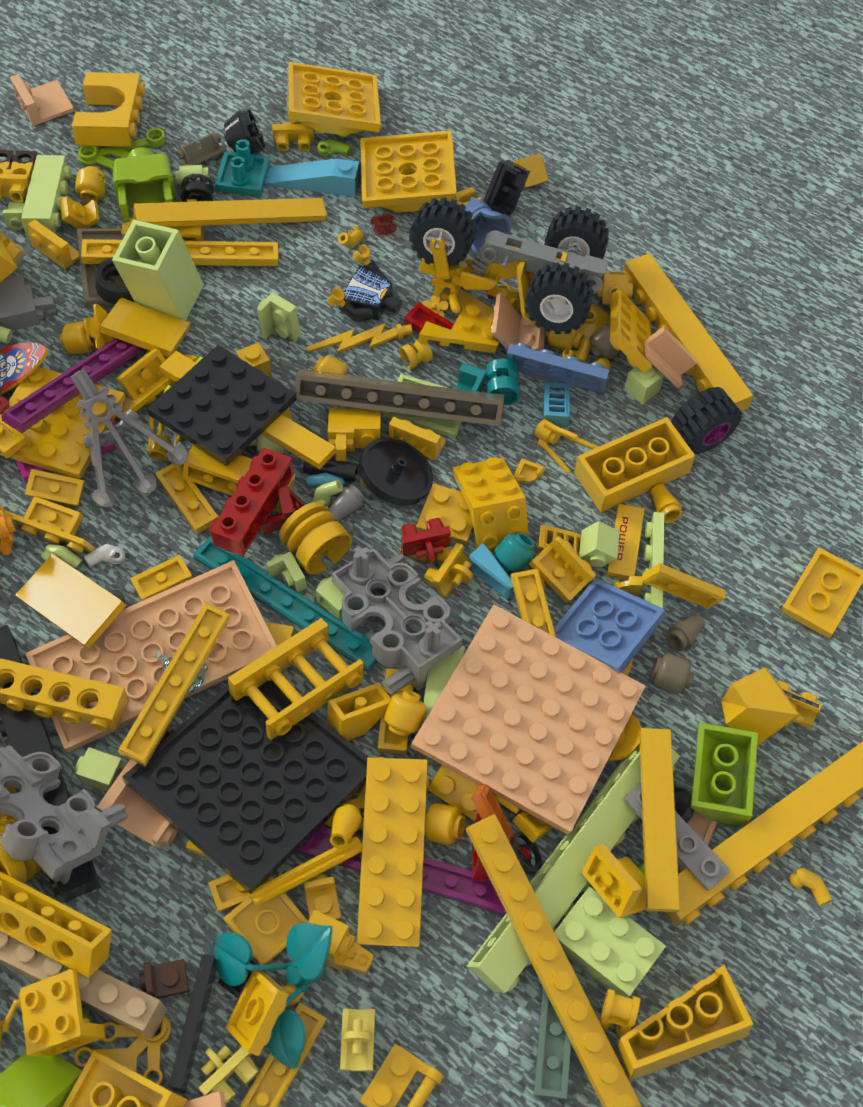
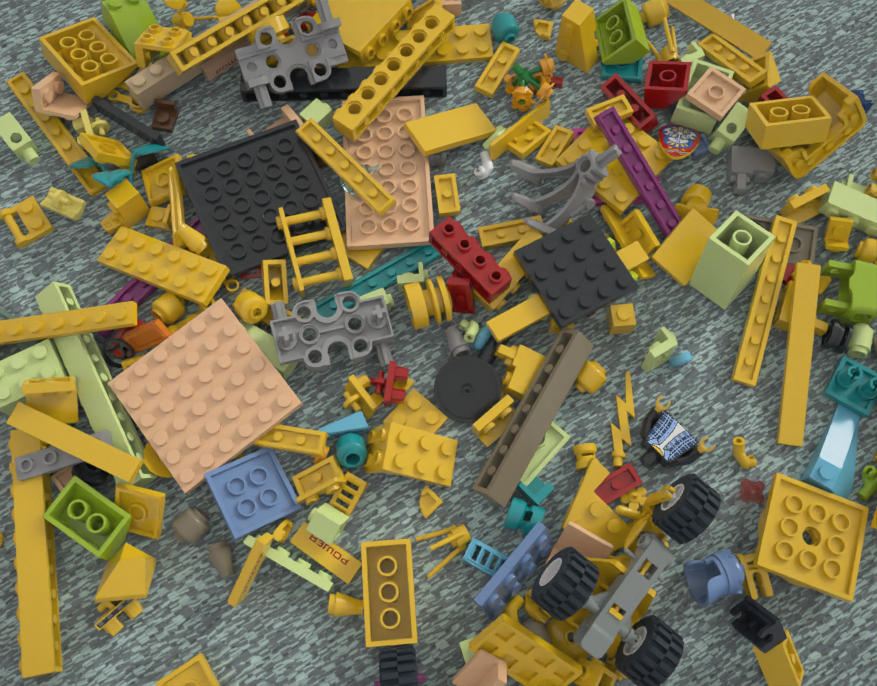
camera: 115 degrees right, 10 degrees up
(683, 722) = (144, 506): none -> yellow tile

